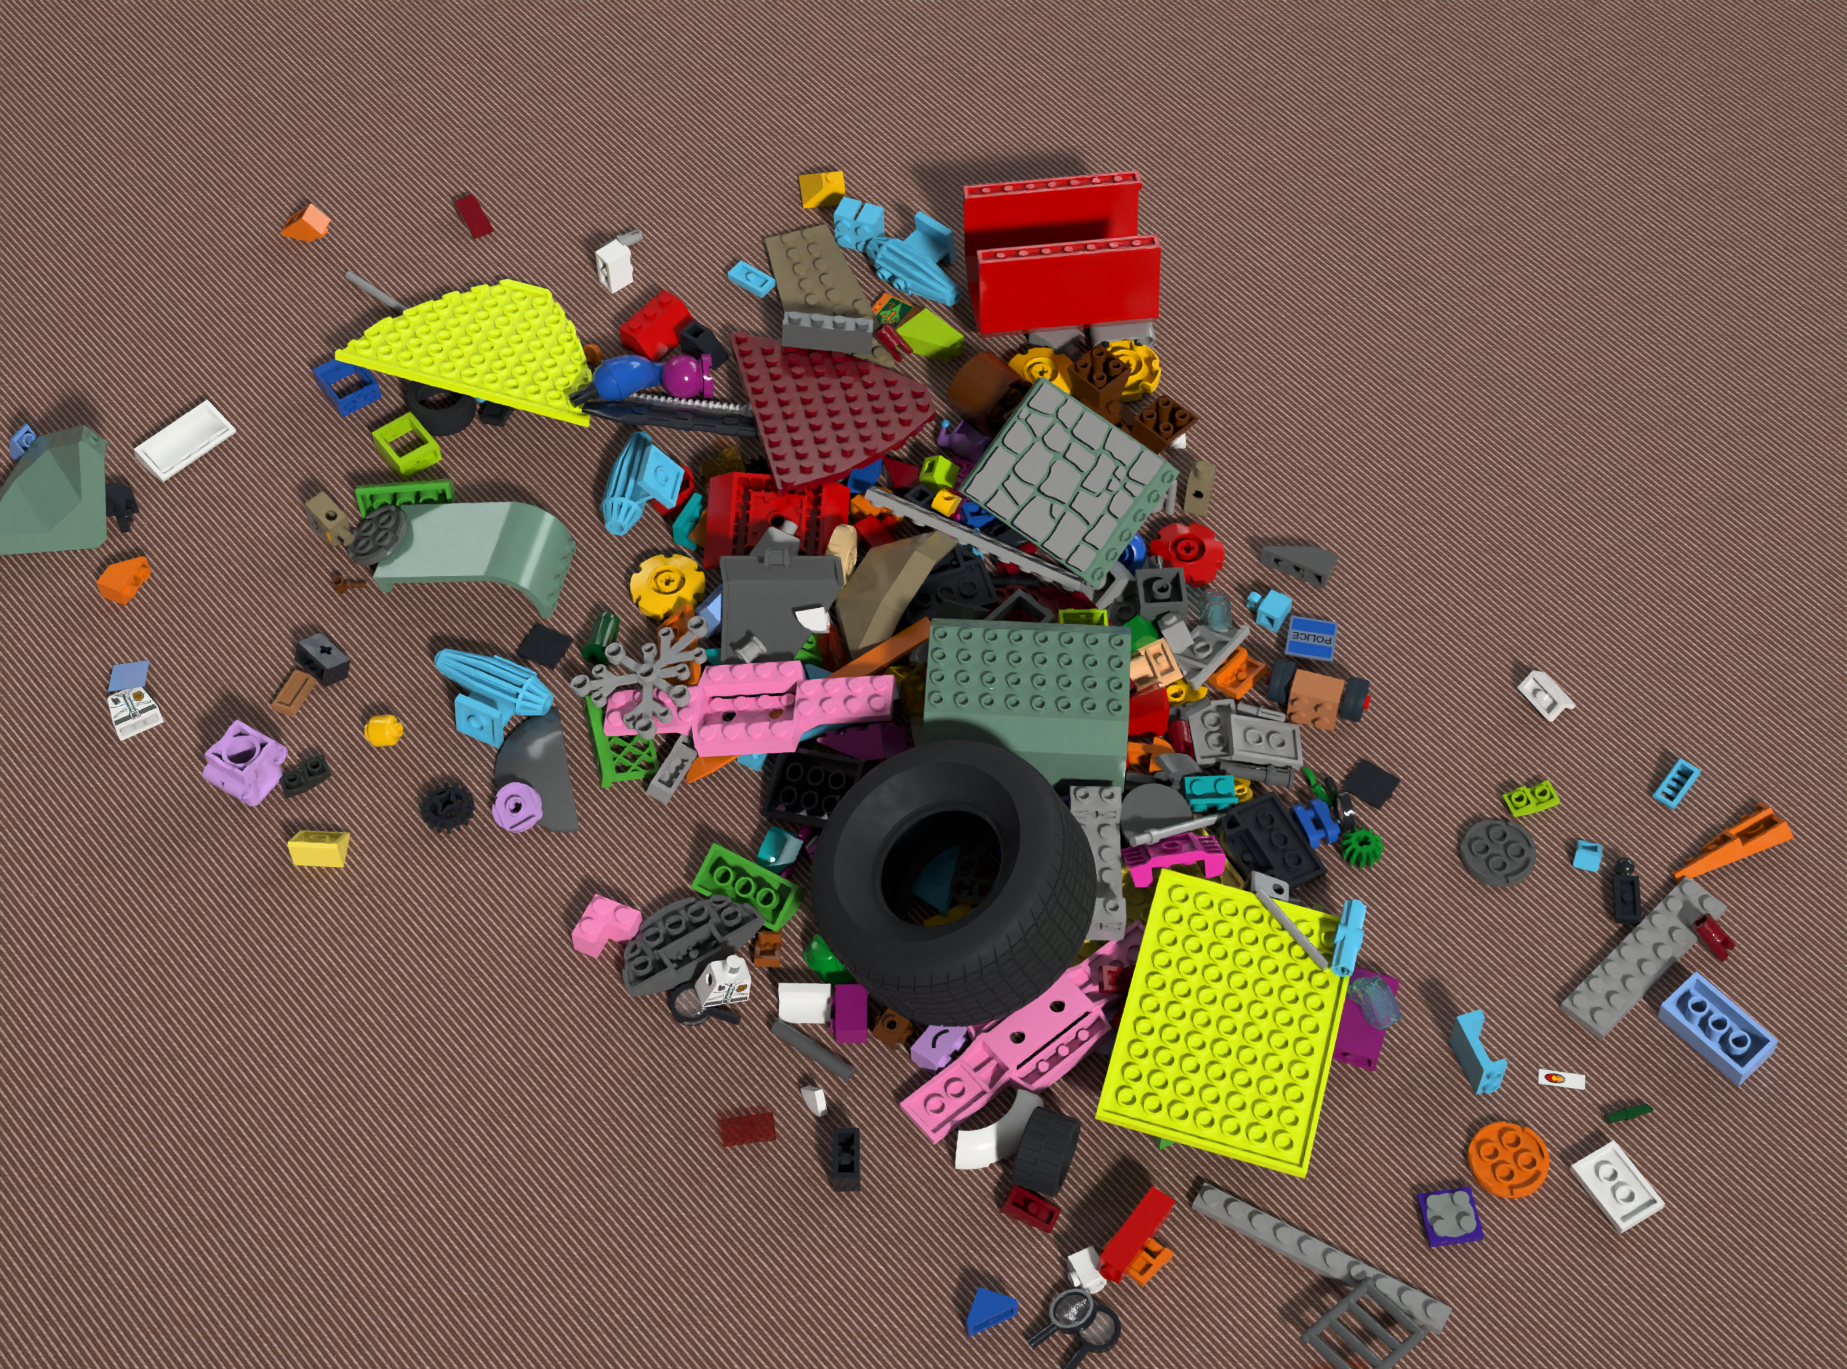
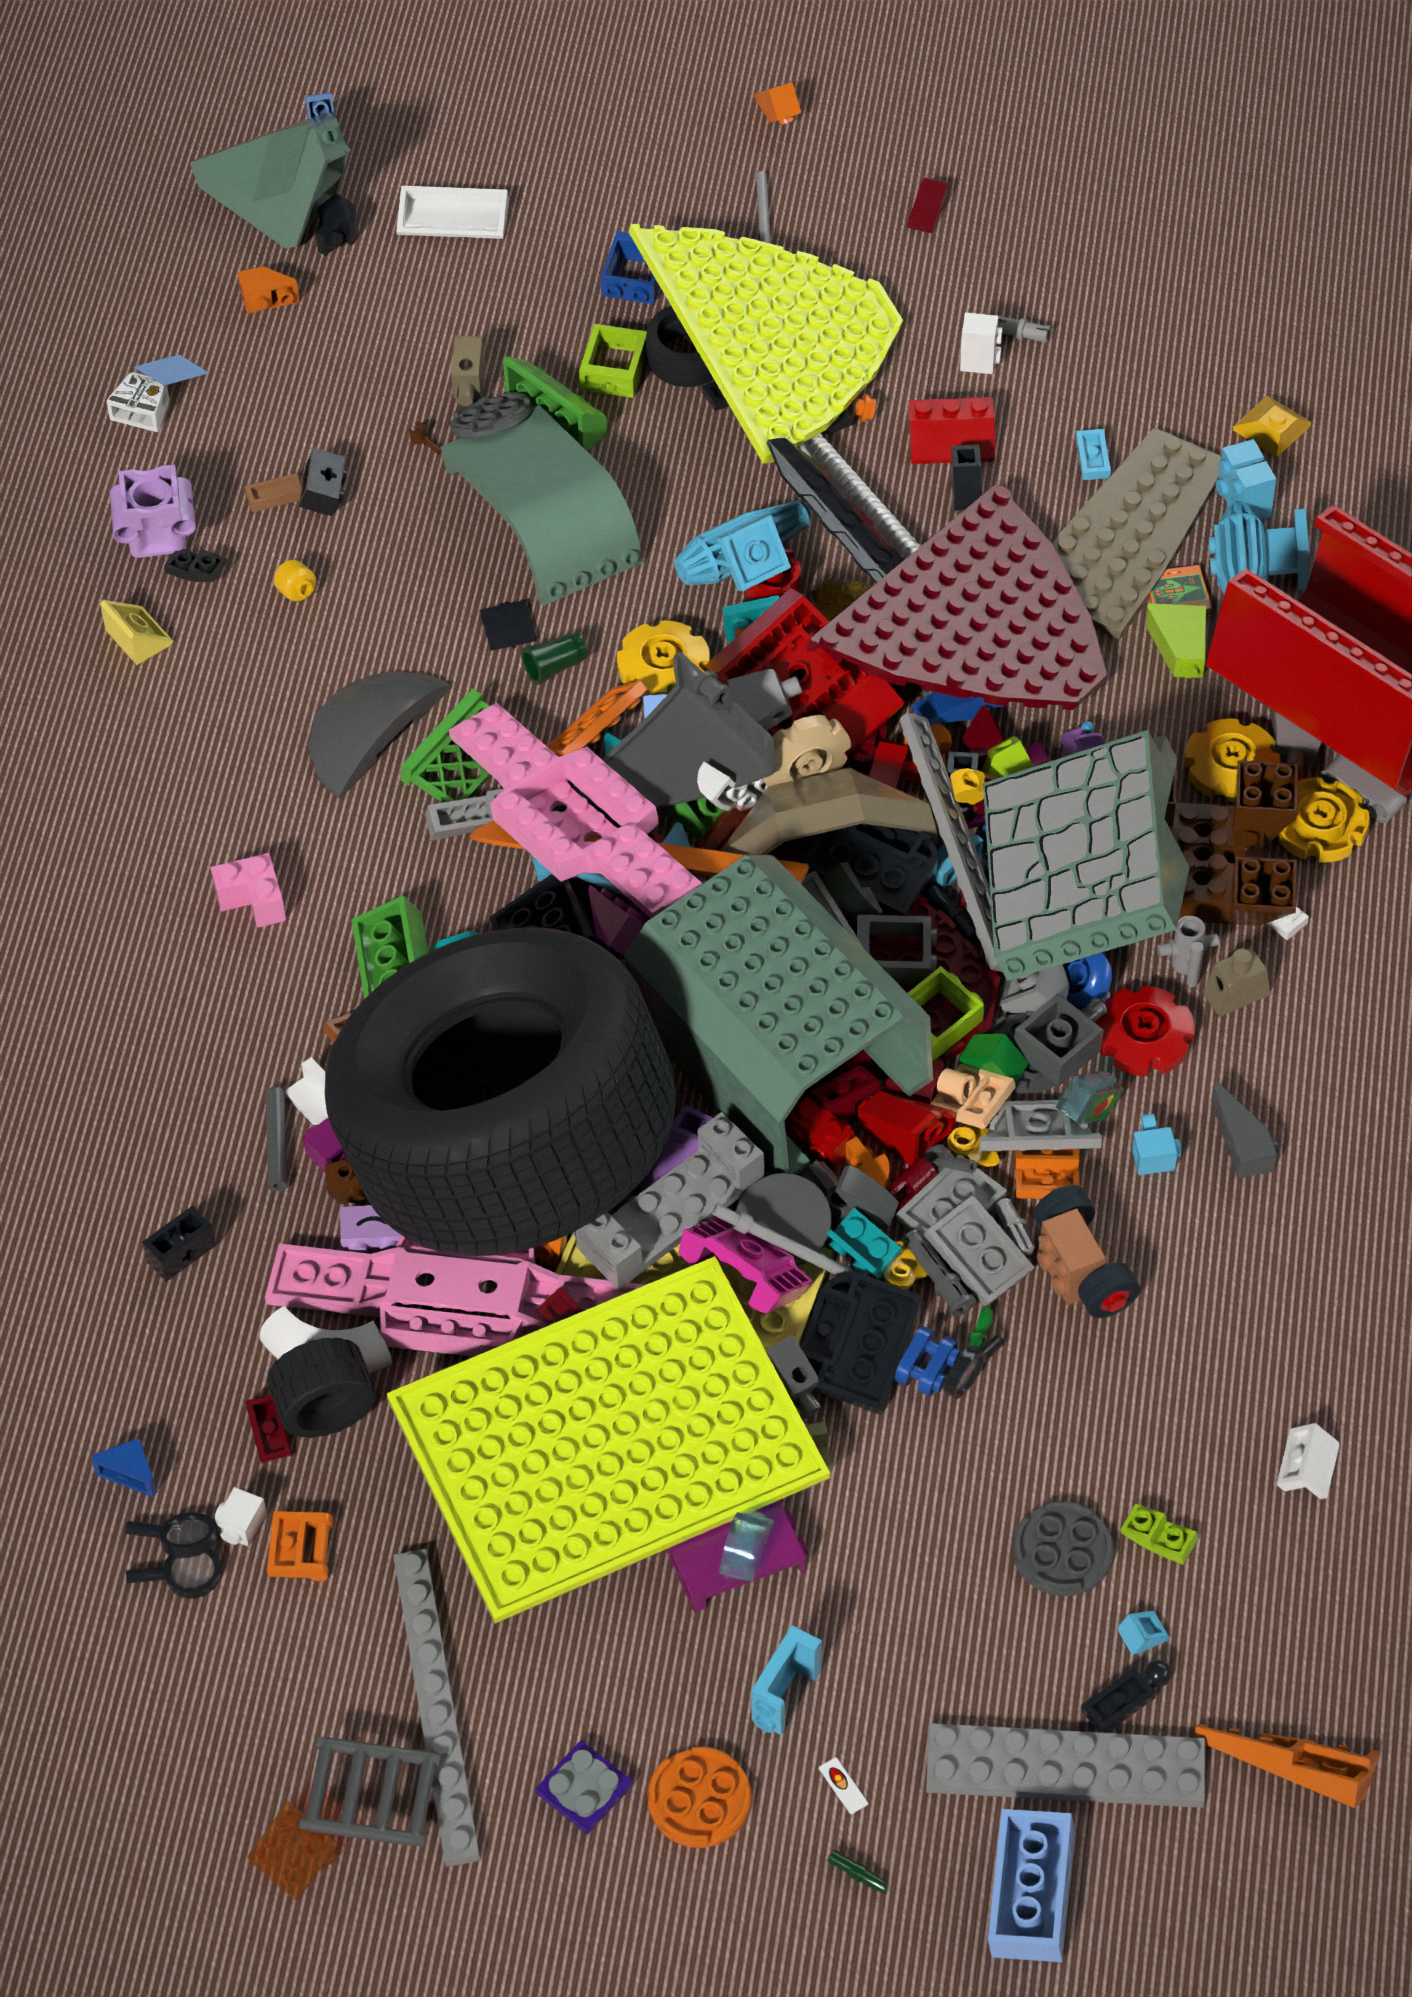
camera: 50 degrees right, 0 degrees up
(448, 808) = (262, 686): black gear -> none
(496, 693) = (415, 625): medium azure piece -> none
(529, 813) = (314, 745): lavender plate -> none
(619, 379) = (846, 443): blue animal -> none
(647, 676) = (530, 713): light grey plant -> none
(684, 939) = (289, 959): dark grey brick -> none
(686, 376) = (912, 493): magenta tile -> none
(688, 1010) = (240, 1016): piece -> none
(724, 982) = (274, 1018): white torso -> none
(748, 1129) = (150, 1151): clear red plate -> none
(750, 650) = (634, 765): light grey bush -> none
(815, 1100) = (224, 1179): white tile -> none
(827, 332) = (1077, 552): dark grey slope -> none
(890, 338) = (1135, 611): dark red hinge -> none
(987, 391) = (1152, 705): reddish brown brick -> none
(1135, 1235) = (299, 1523): red brick -> none
(1175, 631) = (1029, 1083): light grey brick -> none
(1292, 929) = (756, 1416): light grey bar -> none
(1311, 638) = (1153, 1206): piece -> none
(1348, 938) = (792, 1469): medium azure piece -> none
(1361, 847) = (943, 1410): green gear -> none
(1371, 784) = (1033, 1381): black piece -> none
(1617, 1187) = (755, 1914): white plate -> none
(1685, 768) = (1318, 1667): medium azure slope -> none
(1713, 936) = (1147, 1804): dark red hinge -> none

